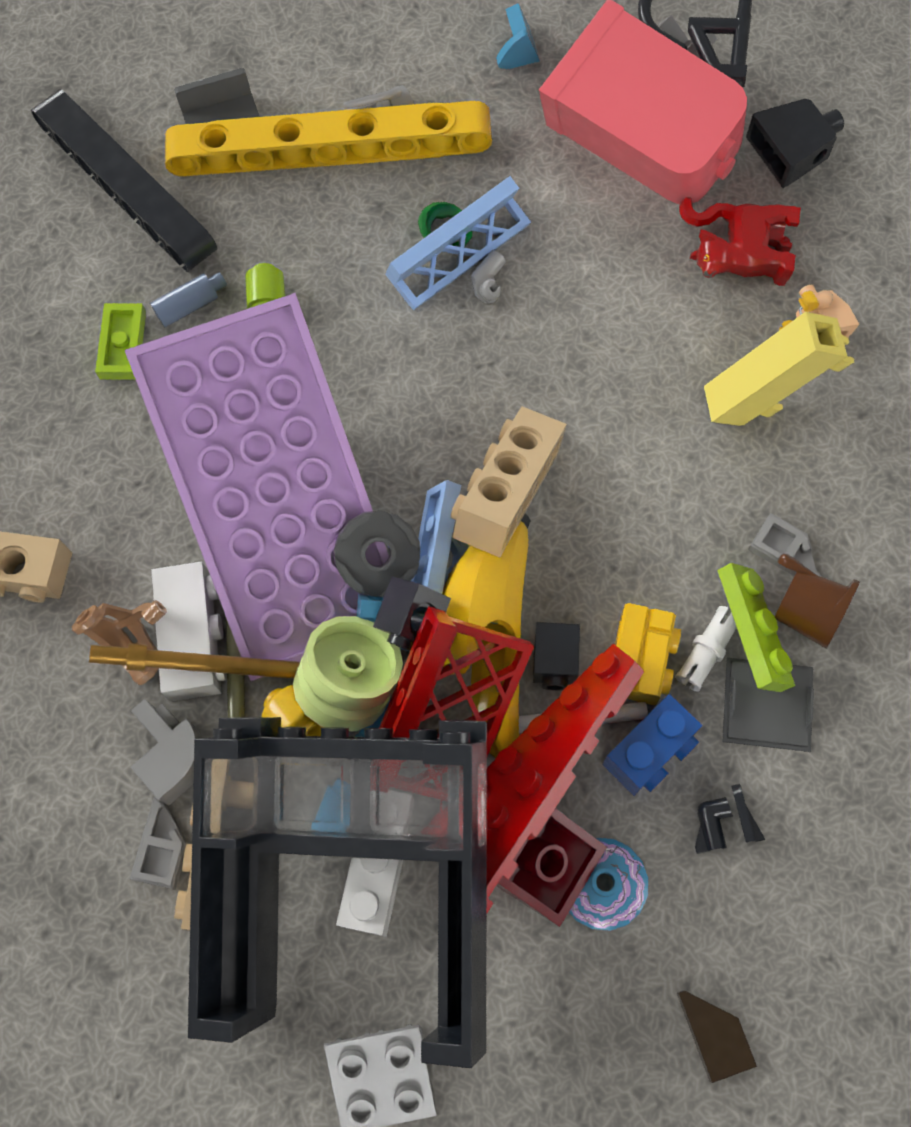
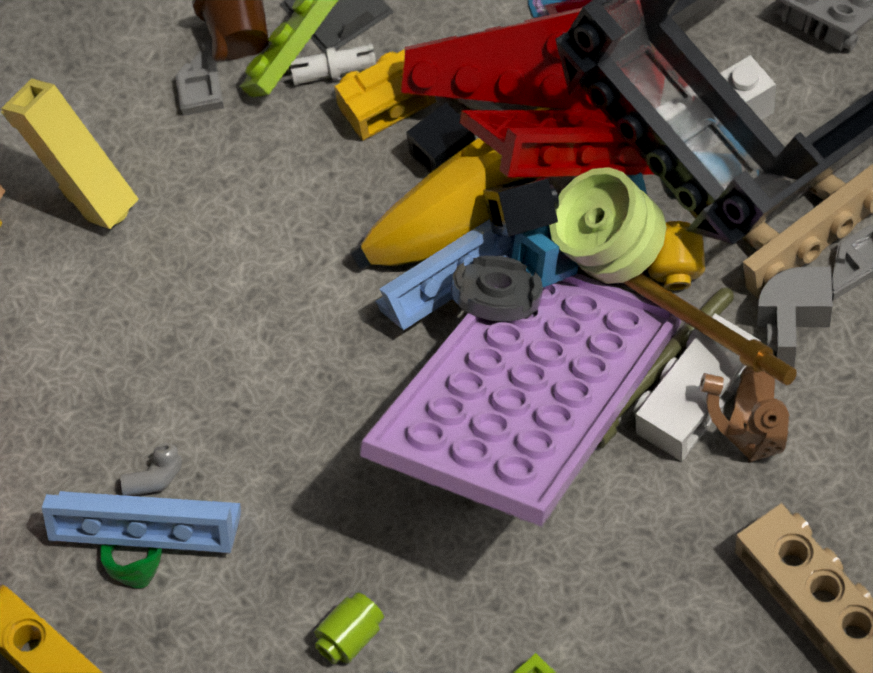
camera: 130 degrees left, 10 degrees down
(507, 482) = (347, 241): tan brick -> none
(651, 744) = (437, 20): blue brick -> none

